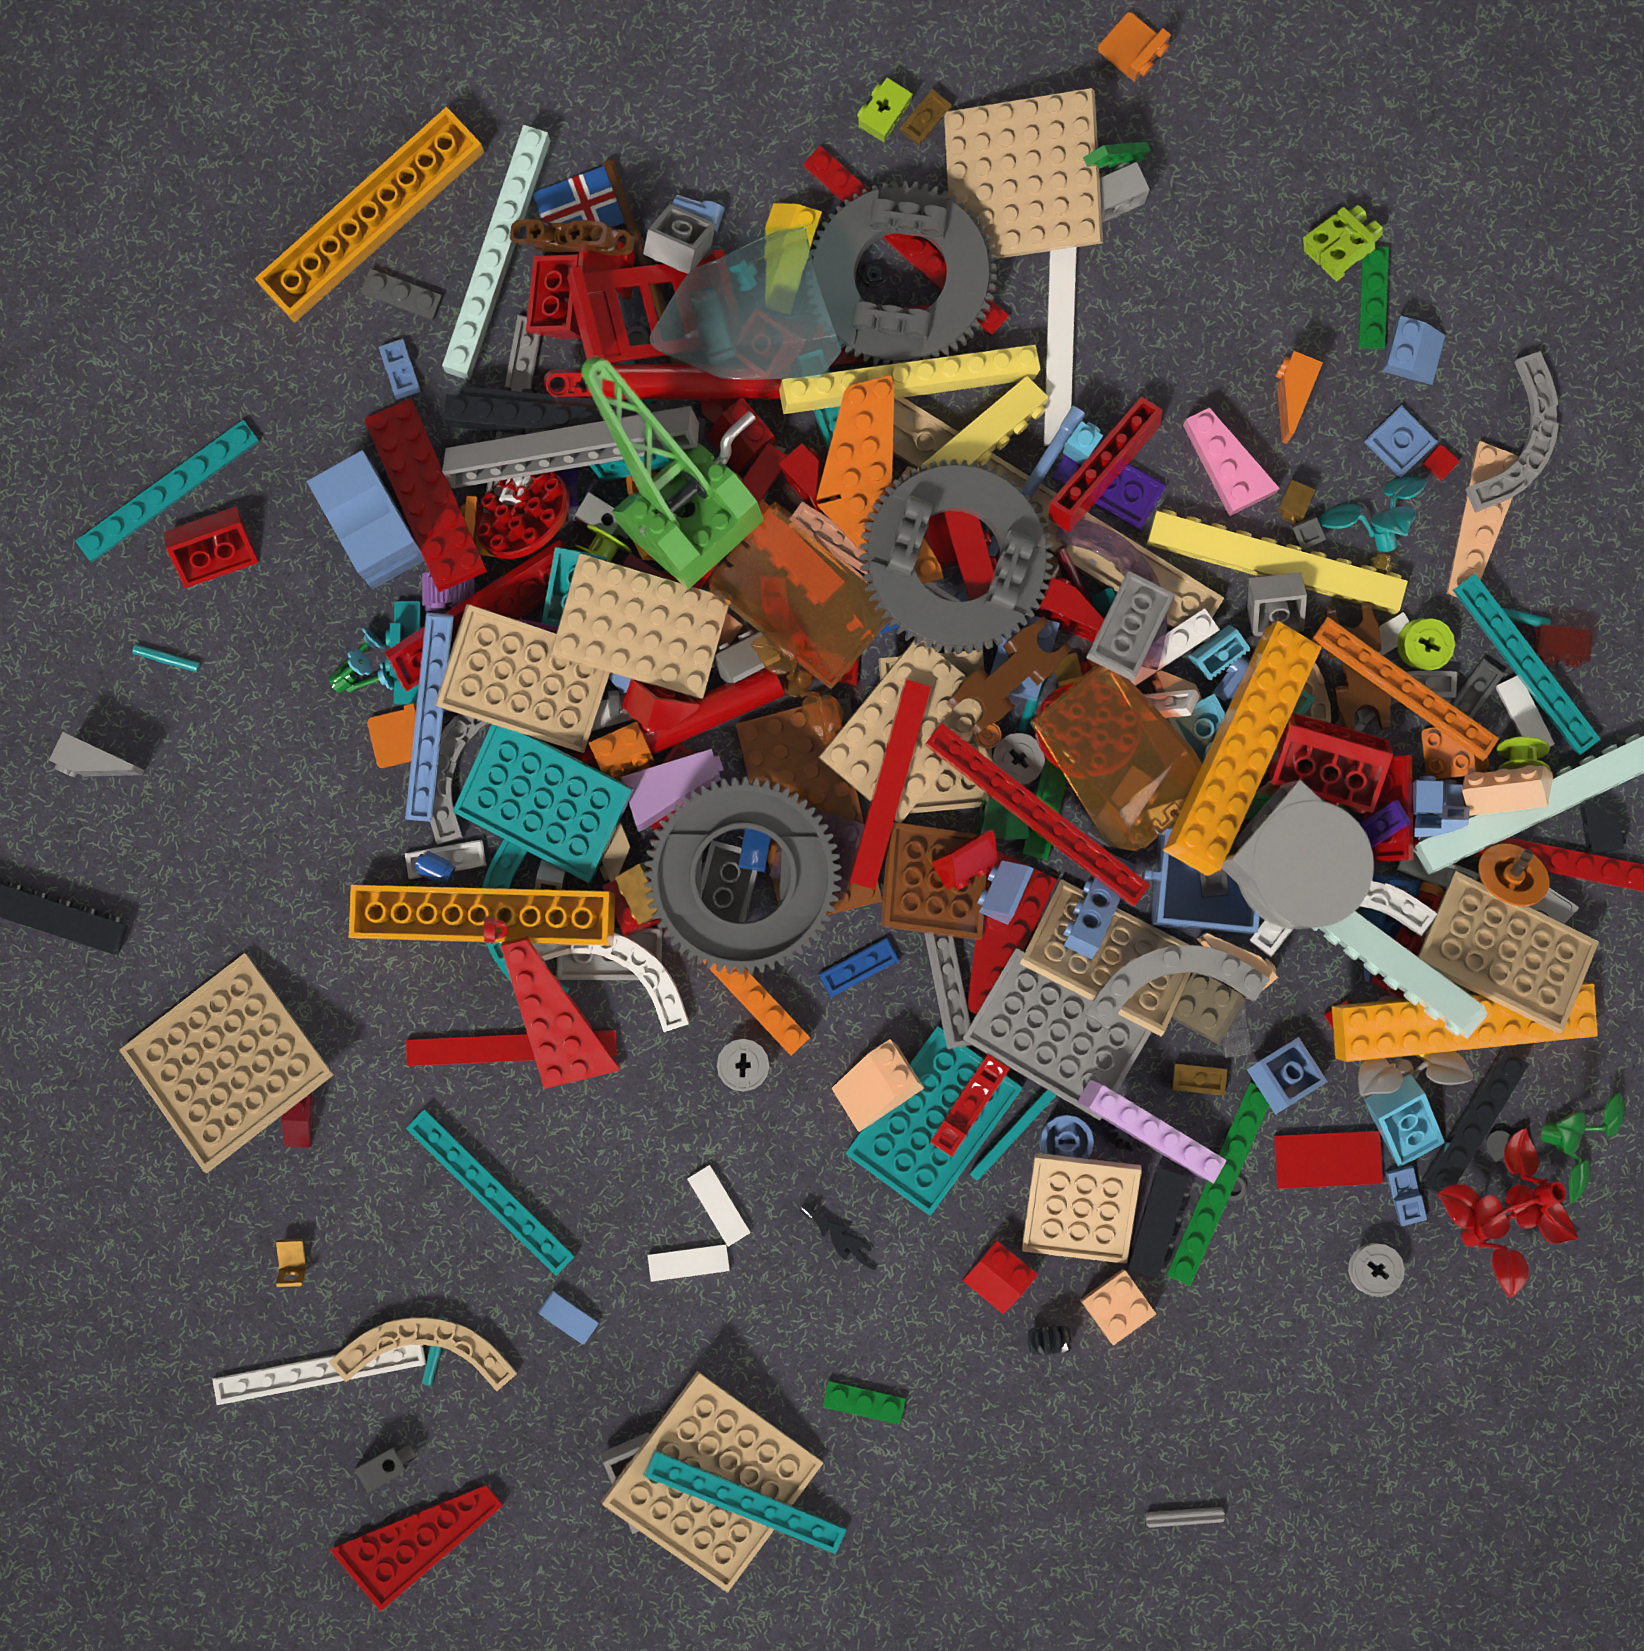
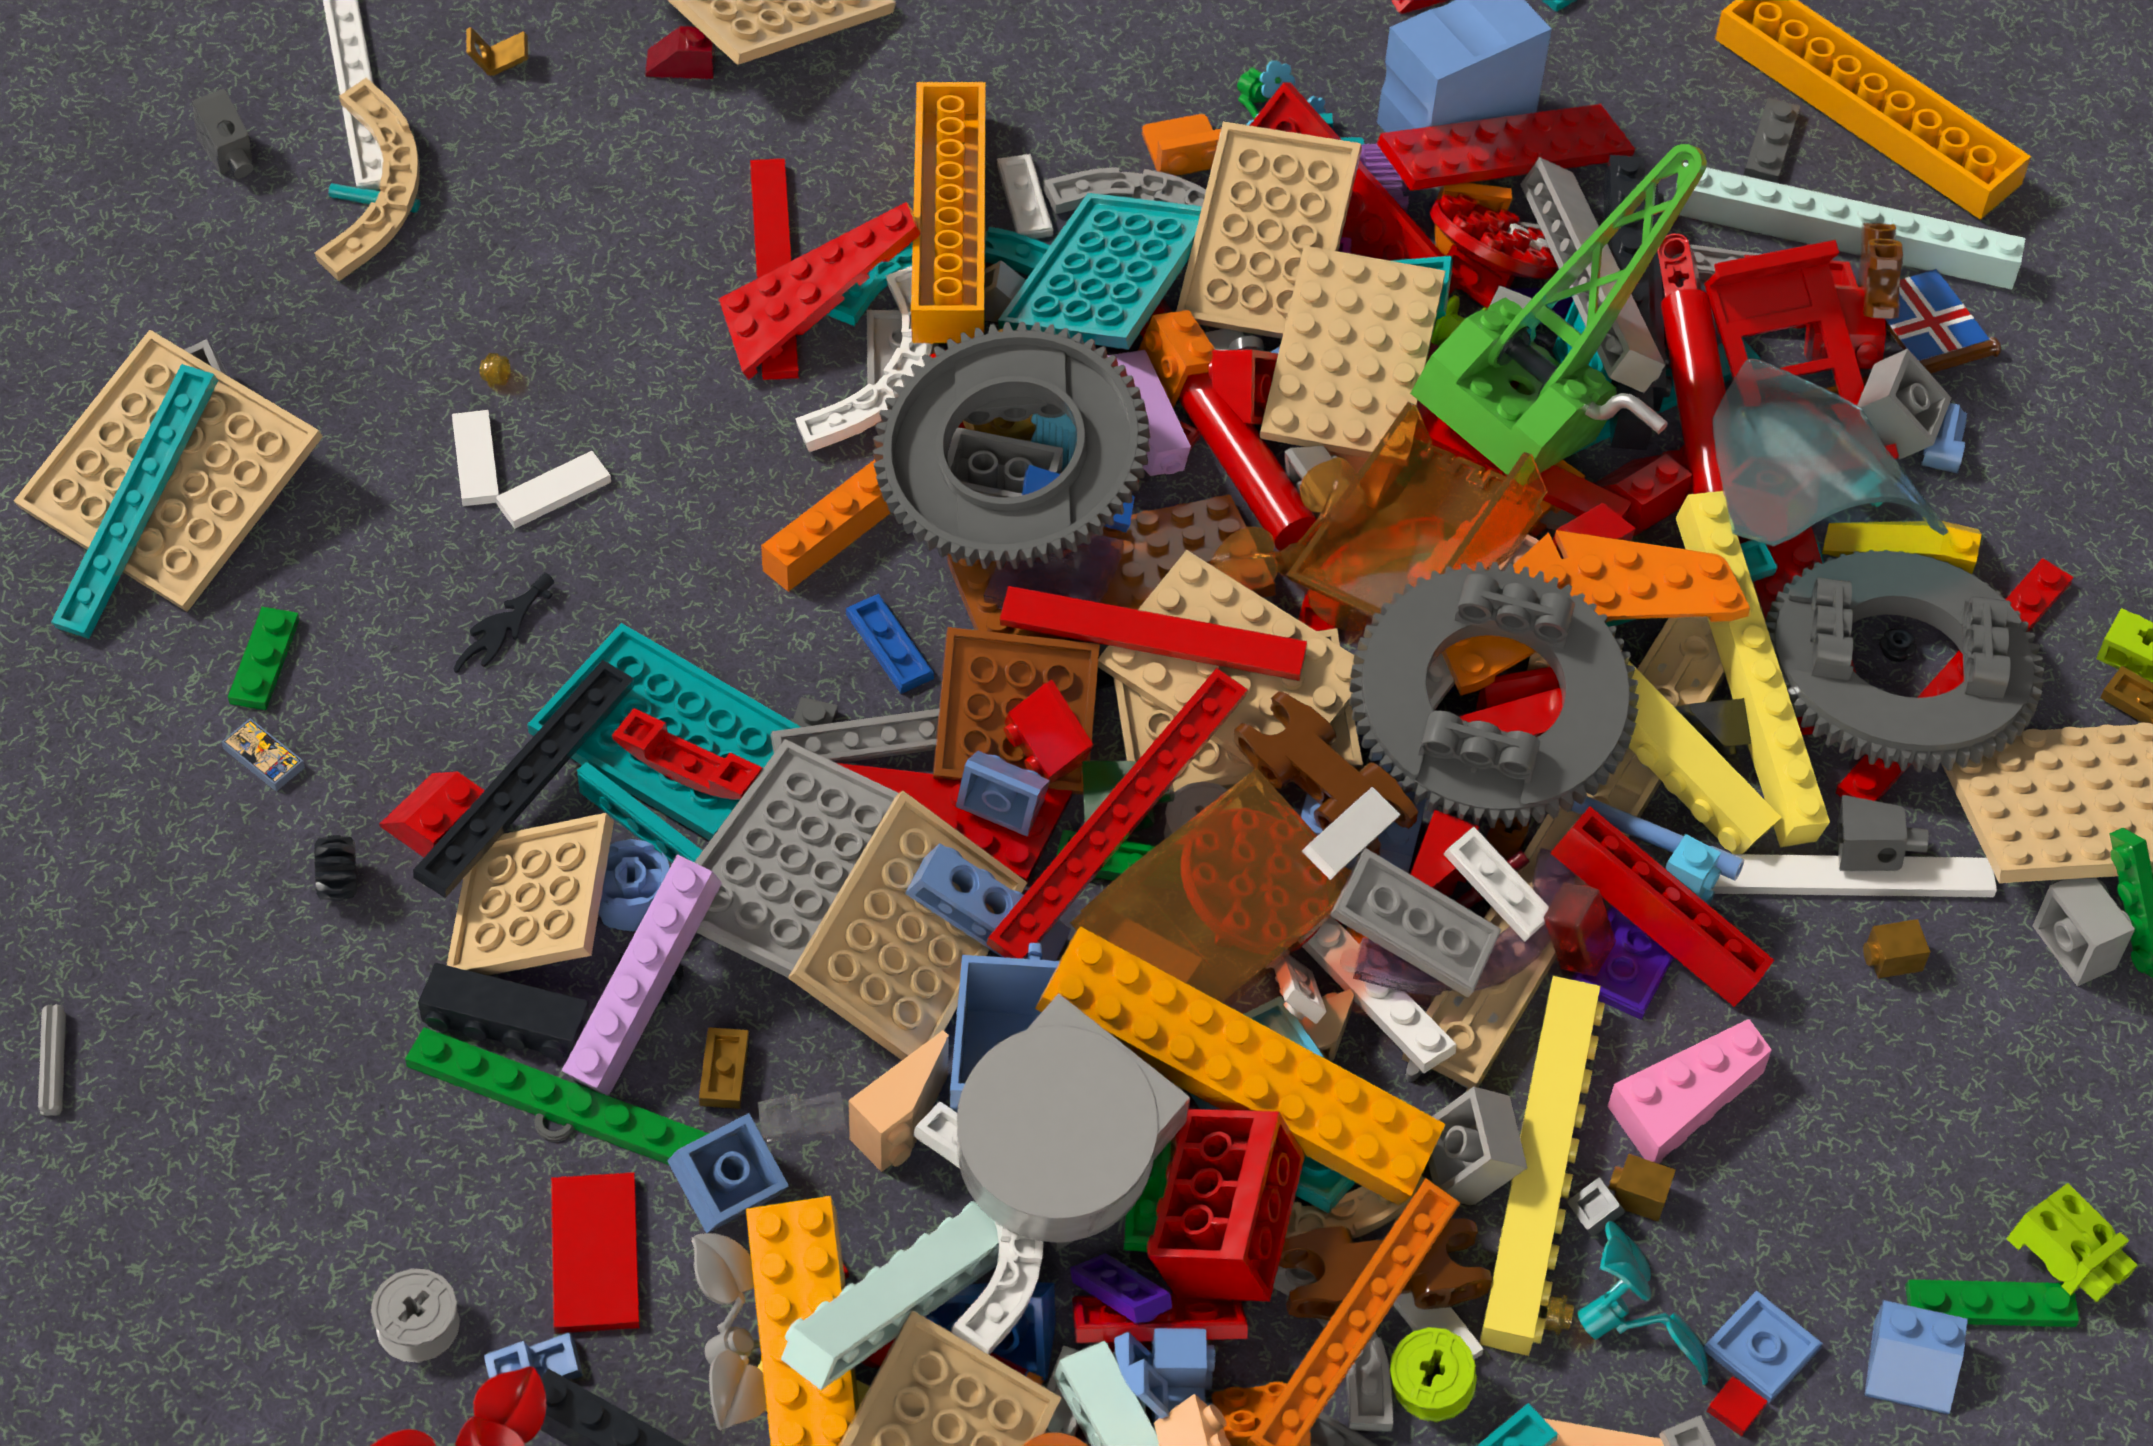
camera: 85 degrees right, 30 degrees down
(399, 369) = (1656, 143): medium blue slope -> none
(401, 1552) = (117, 172): red wing -> none
(428, 718) = (1199, 137): medium blue tile -> none
(434, 868) = (1011, 172): blue brick -> none
(490, 933) = (928, 195): red tile -> none
(490, 1192) = (578, 247): teal plate -> none
(568, 1317) = (406, 327): medium blue slope -> none
(609, 1251) = (495, 369): none -> clear yellow plate
(732, 1054) = (748, 506): light grey piece -> none
(877, 1085) = (723, 657): light nougat slope -> none
(922, 1020) = (814, 712): none -> dark grey plate
(945, 1397) = (263, 754): none -> tile
(950, 410) = (1720, 723): none -> slope
(984, 1215) = (523, 779): none -> black plate
(988, 737) = (1232, 770): orange tile -> none
(1039, 316) = (1875, 836): none -> dark grey torso
(1073, 662) = (1350, 833): none -> white tile
(1094, 568) = (1498, 883): none -> white tile
(1118, 518) = (1580, 929): none -> clear red brick
(1118, 1306) = (379, 958): light nougat brick -> none
(1123, 315) = (1896, 949): none -> pearl gold brick
(1173, 961) = (901, 976): light grey plate -> none
(1208, 1007) = (833, 1062): dark tan brick -> none
(1219, 652) = (1385, 1069): medium azure brick -> none
(1294, 387) = (1811, 1171): orange slope -> none
(1405, 1121) = (653, 1343): medium azure slope -> none

